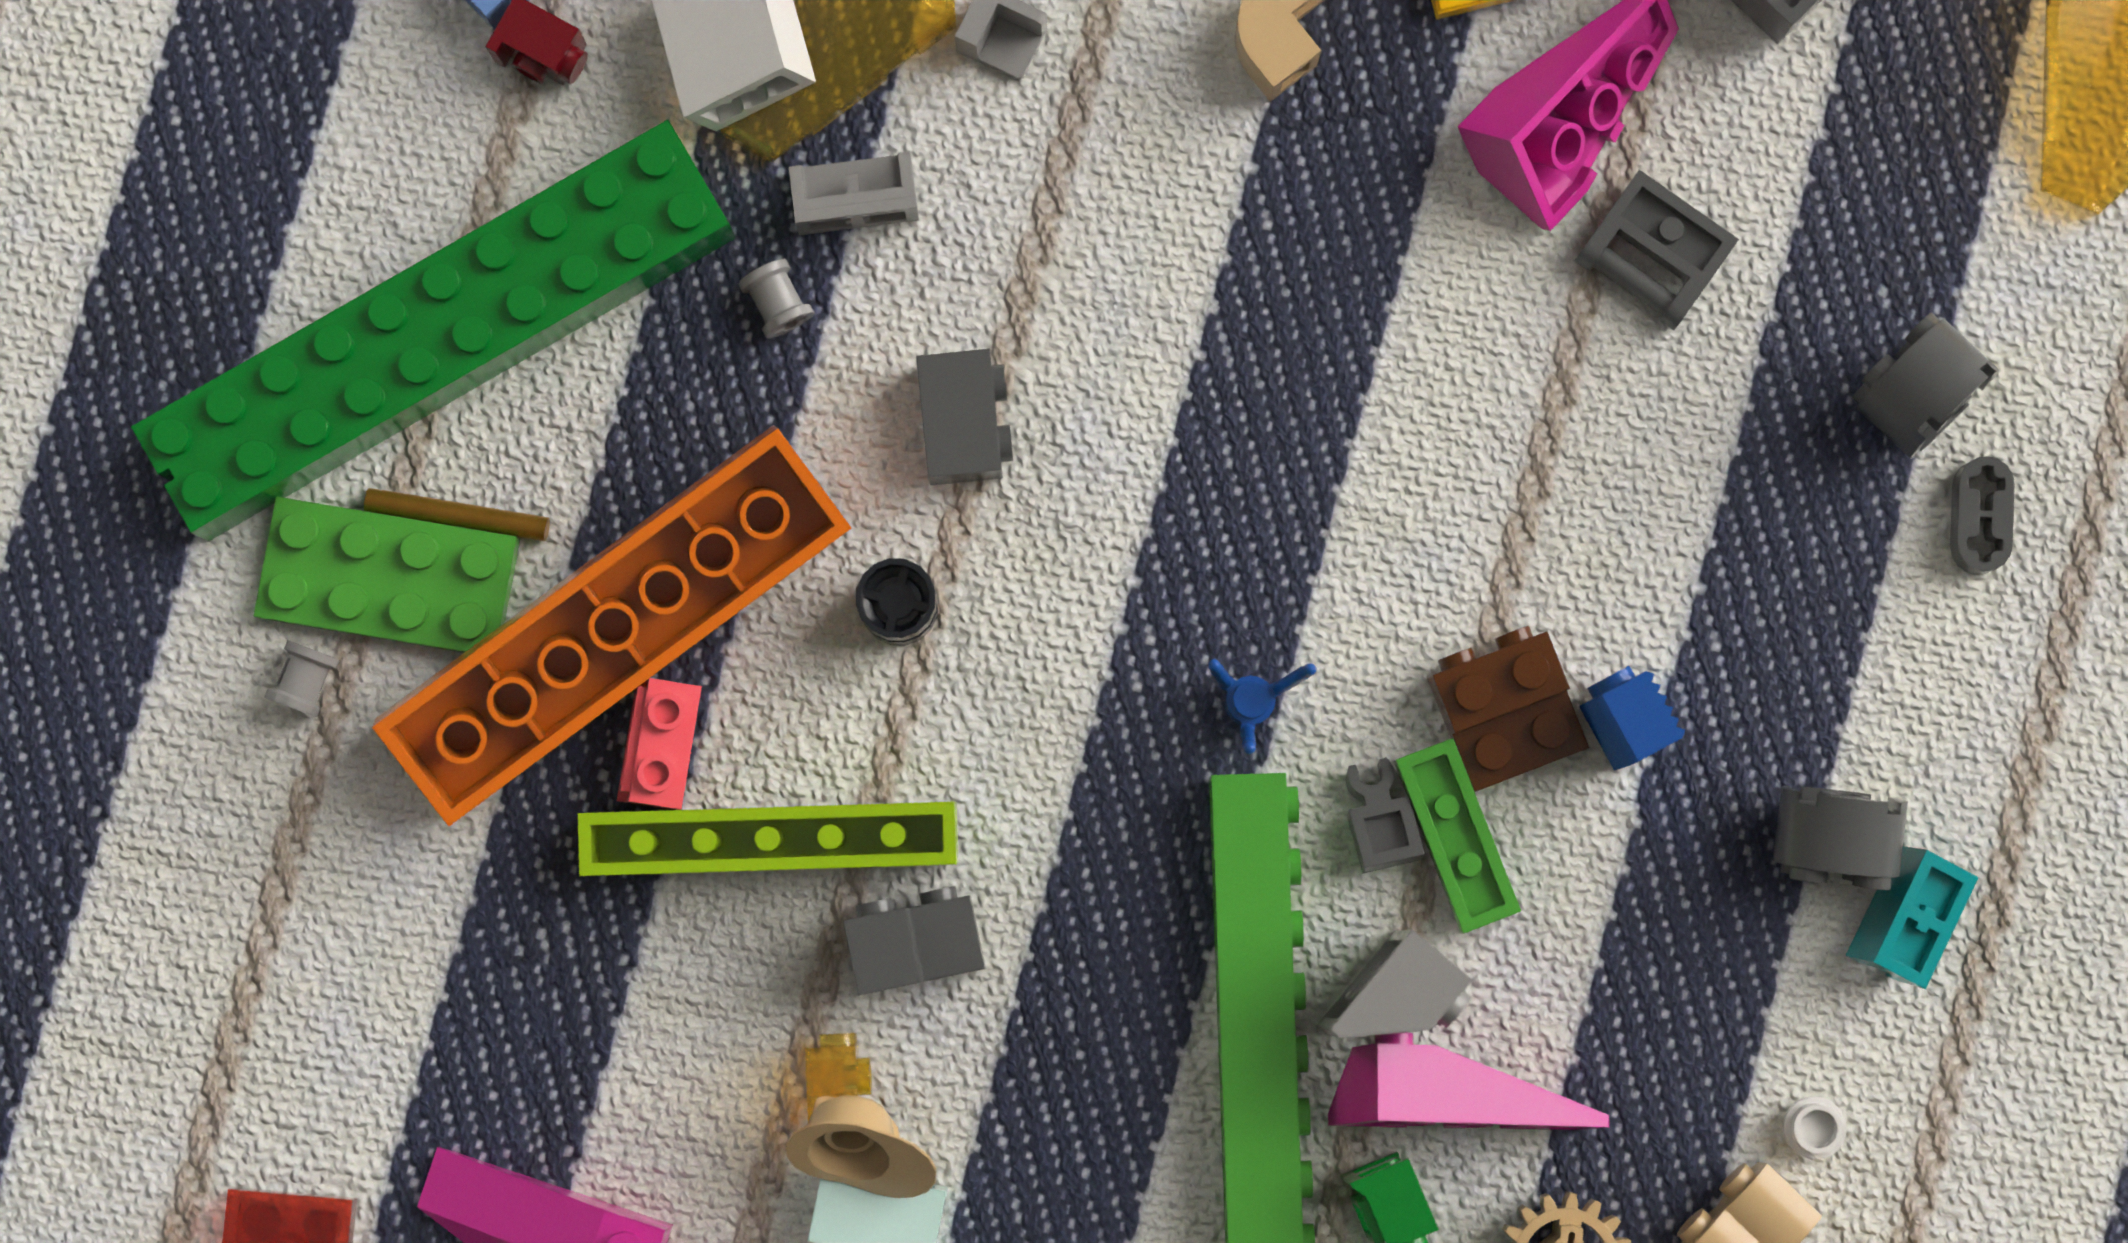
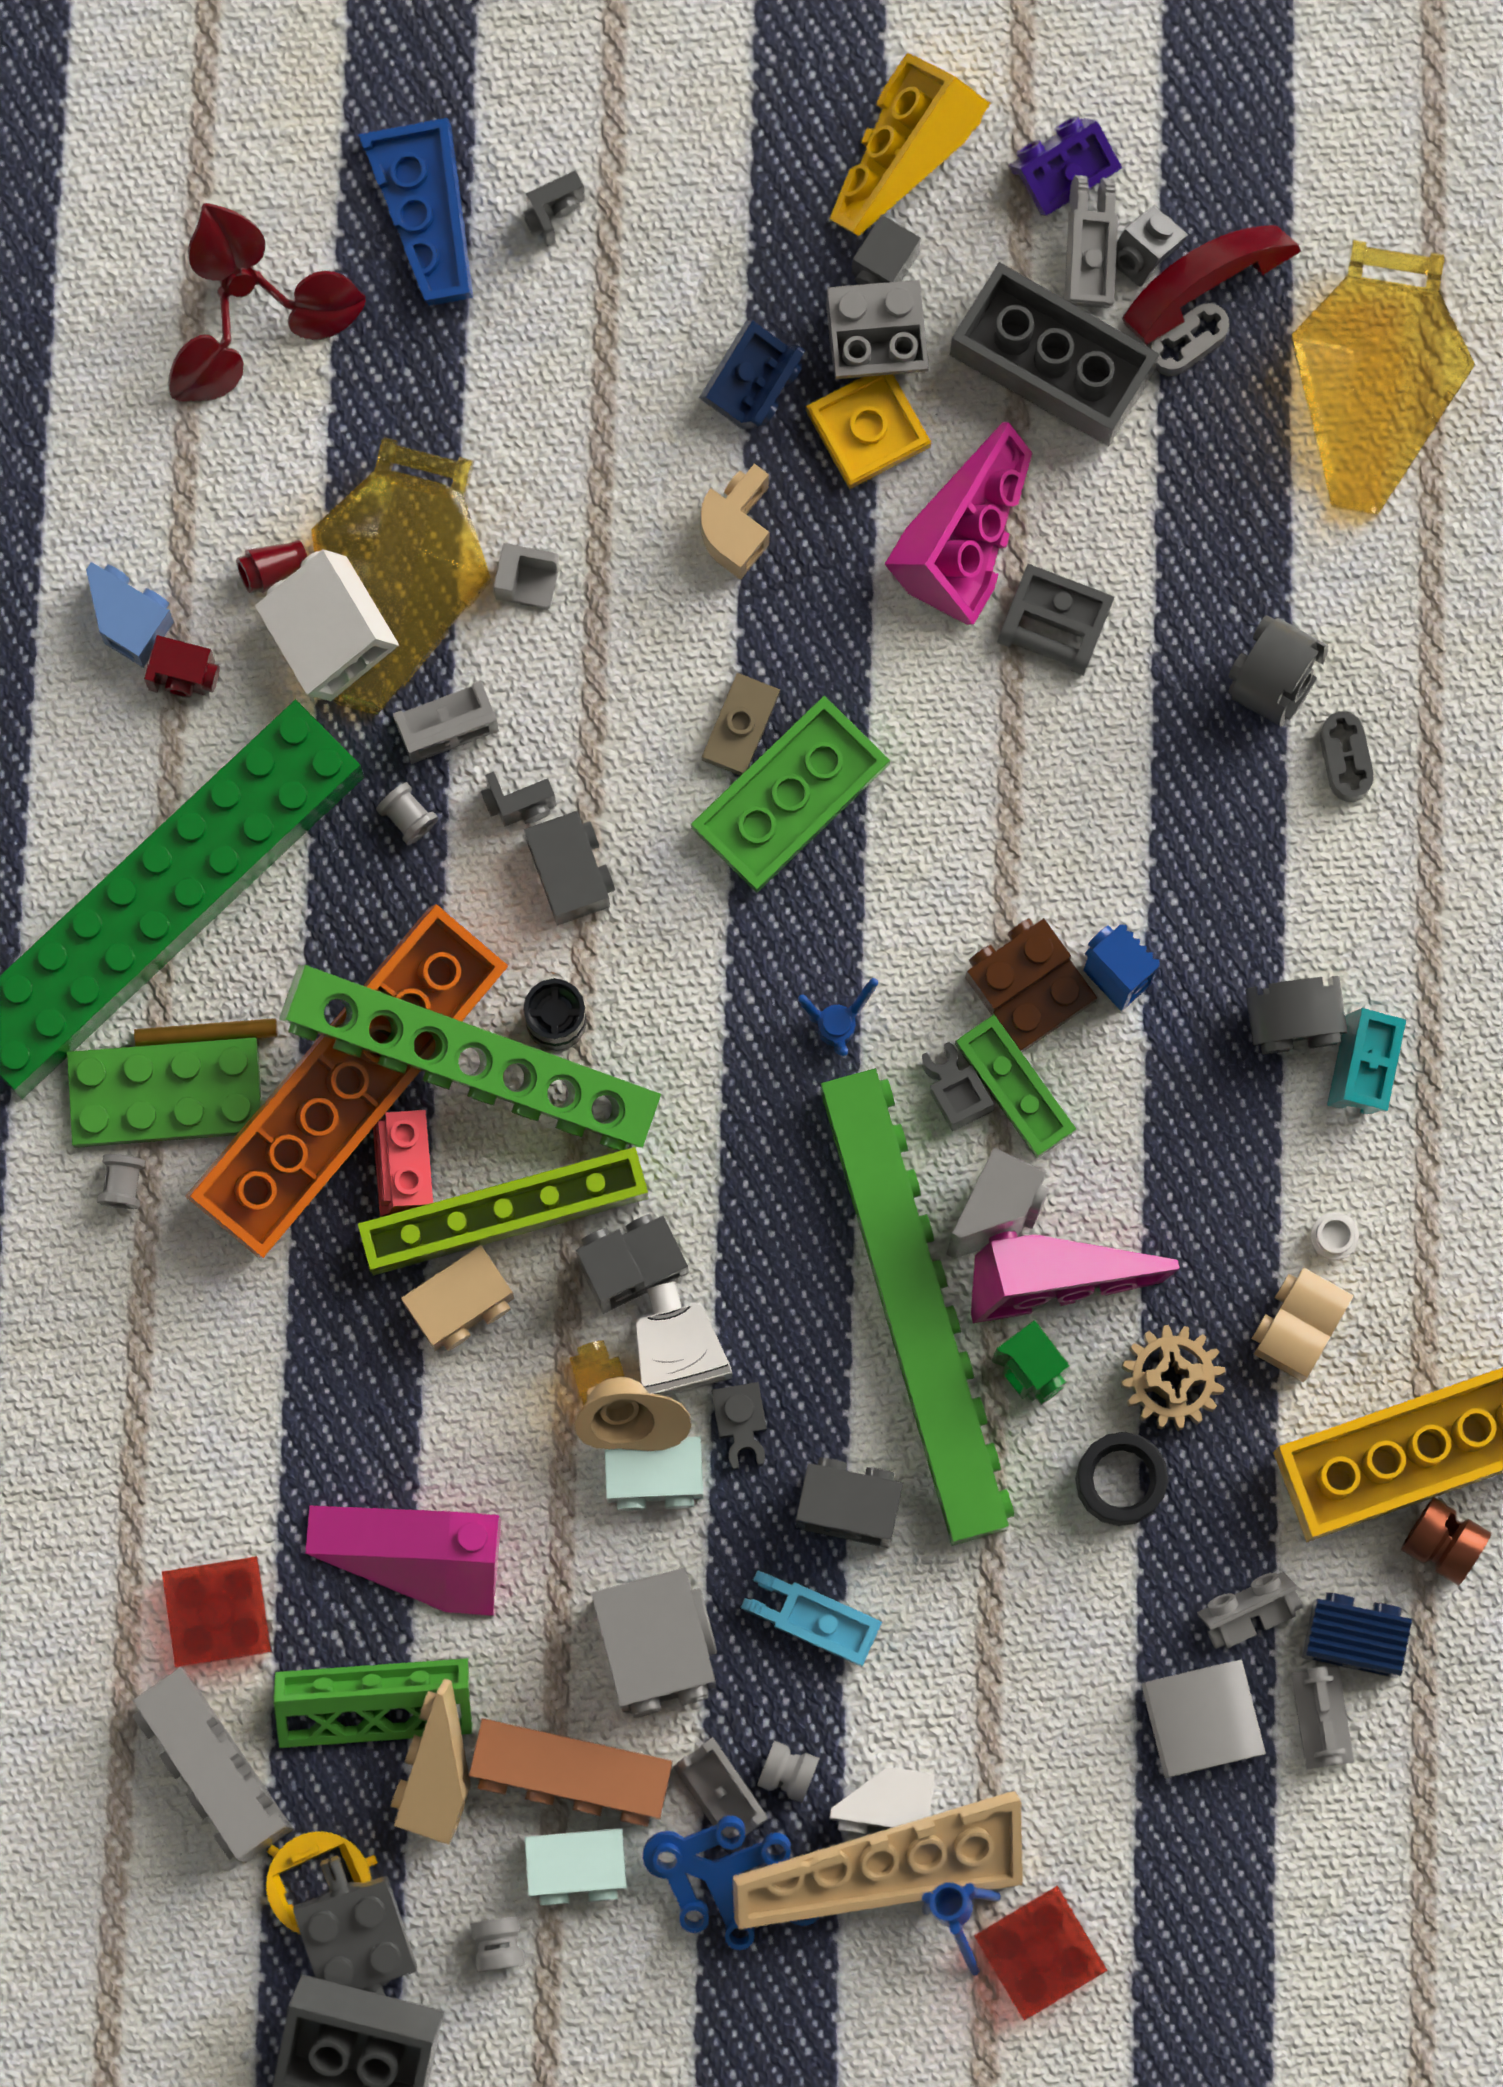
camera: 15 degrees left, 5 degrees down
(686, 934) = (459, 1300): none -> tan brick
(930, 323) = (524, 804): none -> dark grey bracket
(946, 1063) = (678, 1345): none -> white torso
(965, 740) = (631, 1104): none -> bright green brick
(1004, 1168) = (738, 1416): none -> dark grey plate
(1224, 287) = (740, 724): none -> dark tan plate
(1265, 391) = (790, 794): none -> bright green plate

